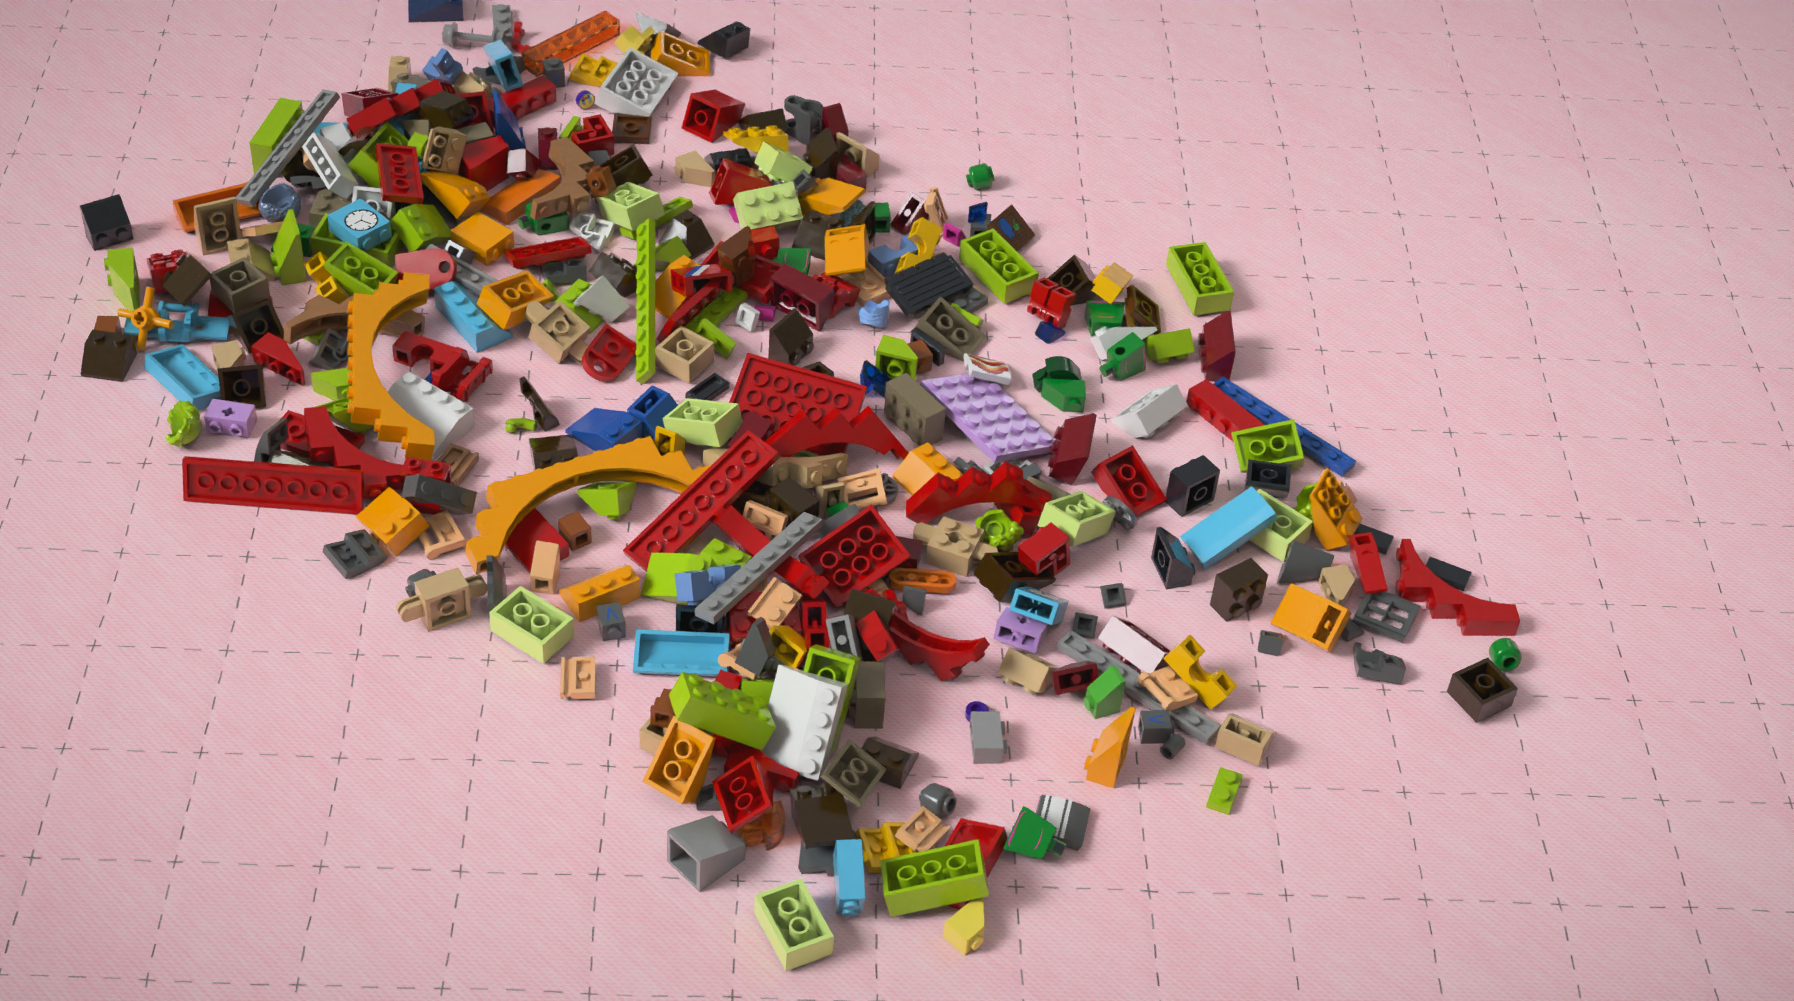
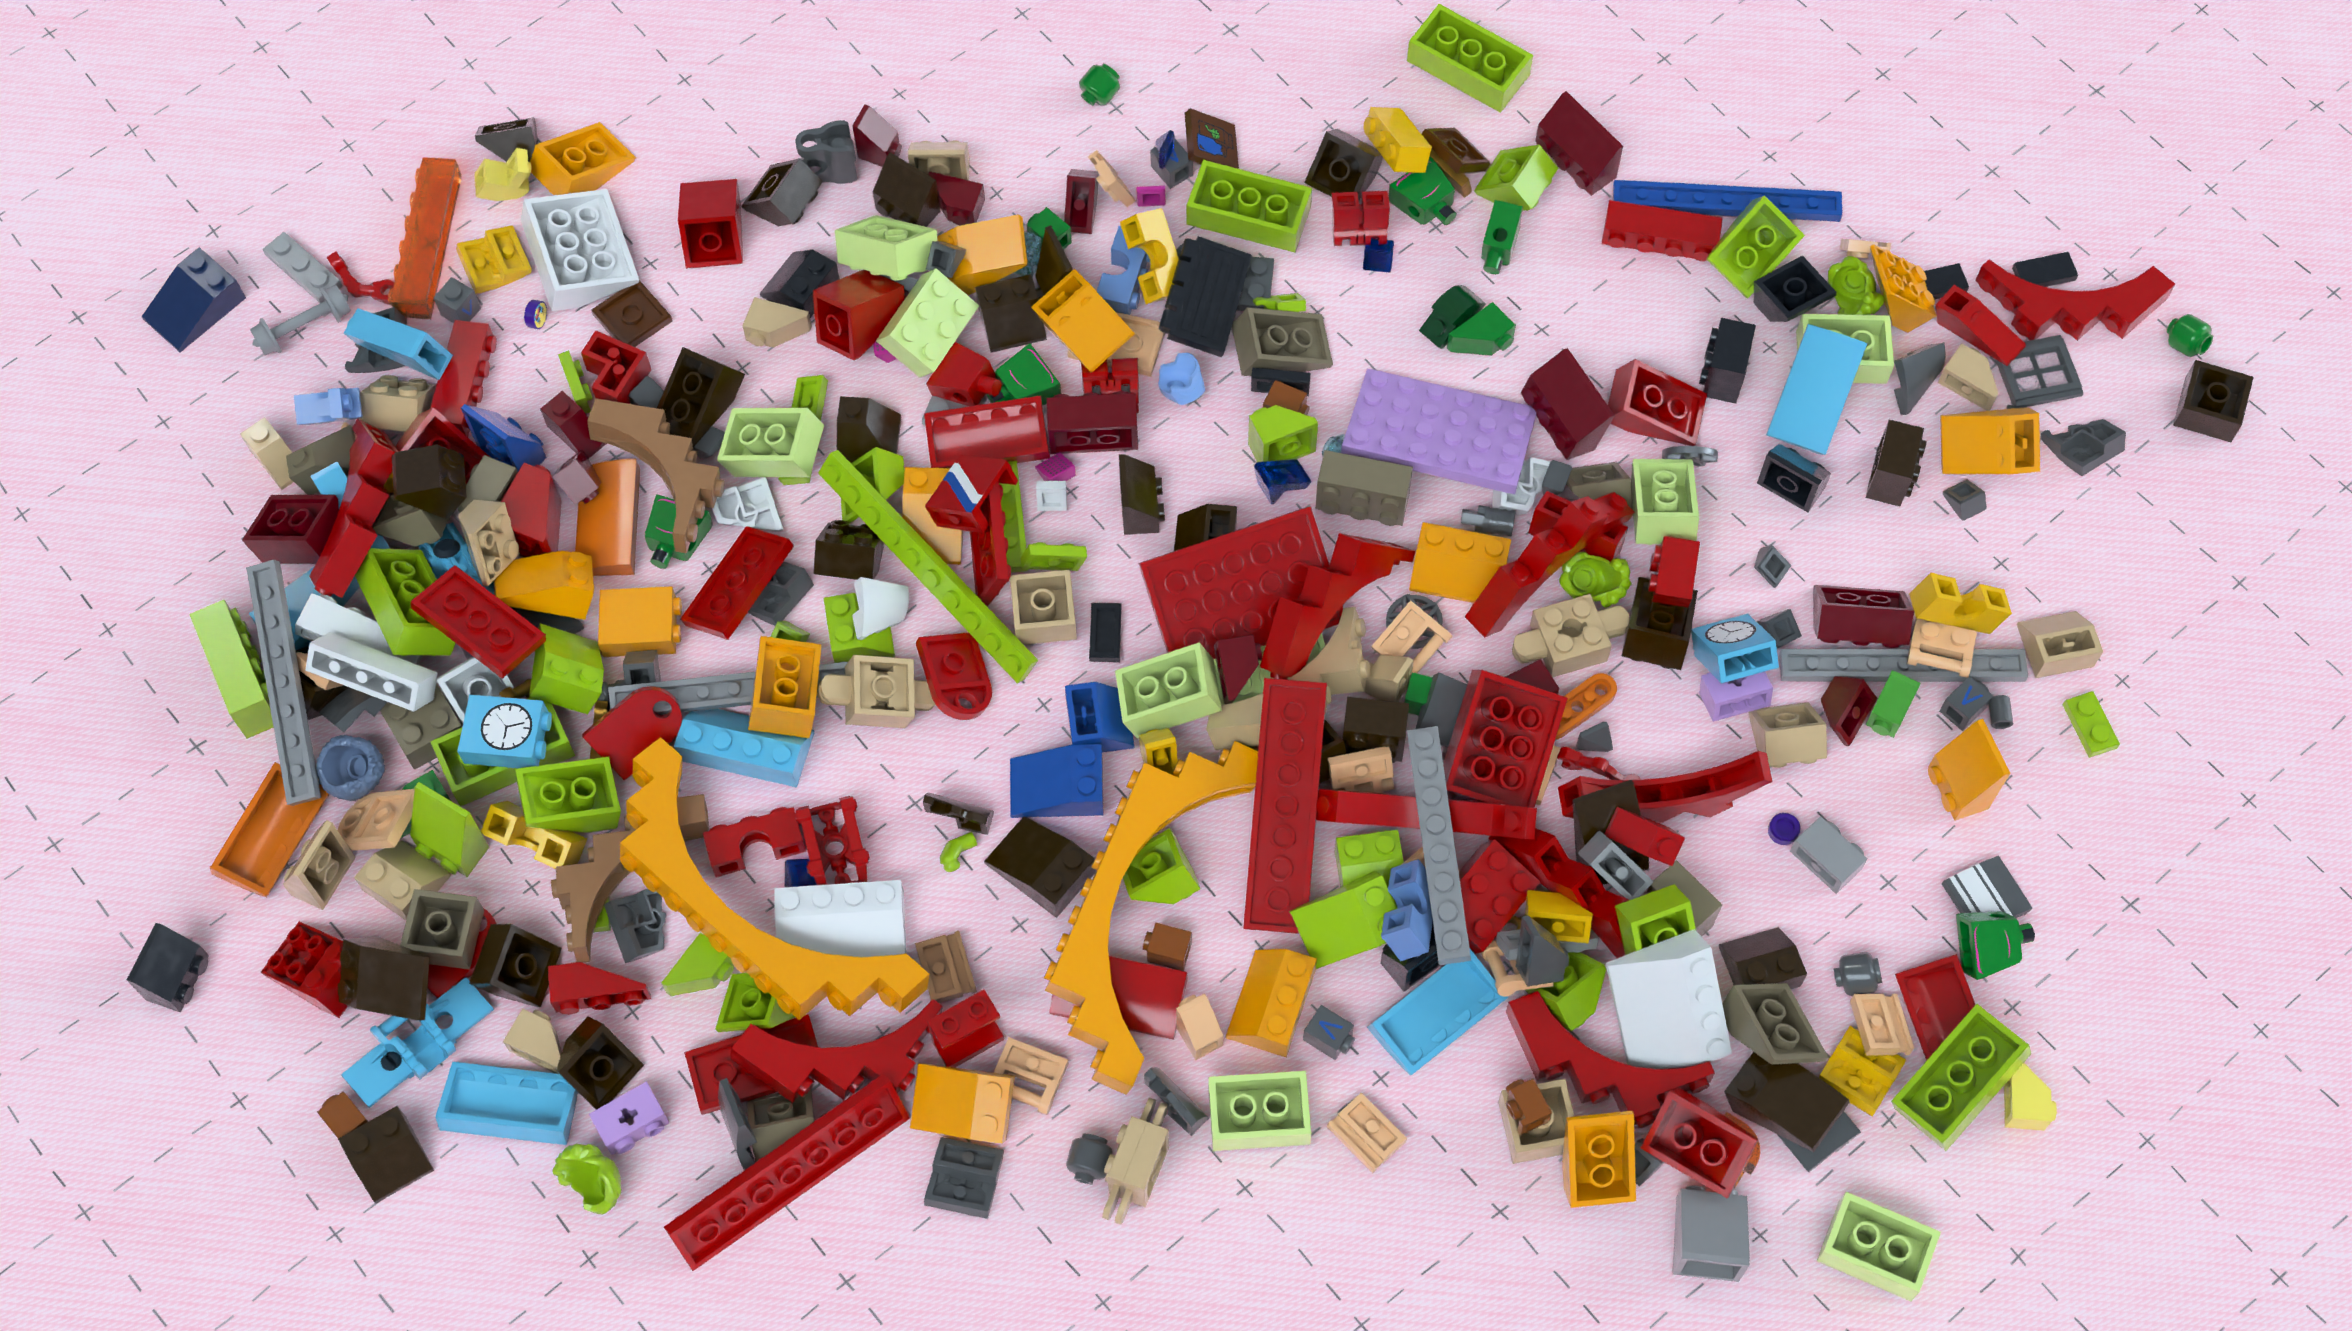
camera: 35 degrees left, 20 degrees up
(123, 276) = (287, 1033): lime slope -> none
(145, 318) = (386, 1070): light orange bar -> none
(358, 140) = (366, 605): dark brown slope -> none
(420, 142) = (439, 552): lime plate -> none
(433, 491) = (996, 1040): dark grey arch -> none
(600, 181) = (709, 437): dark orange brick -> none
(722, 710) = (1596, 1067): lime brick -> none
(727, 40) = (606, 91): black slope -> none
(739, 255) = (988, 429): reddish brown slope -> none
(754, 137) = (813, 225): yellow slope -> none
(775, 603) = (1499, 879): light nougat plate -> none
(849, 877) = (1886, 1148): medium azure brick -> none
(987, 369) = (1373, 363): white slope -> none
(1108, 337) = (1470, 213): white slope -> none
(1151, 411) = (1585, 287): white slope -> none

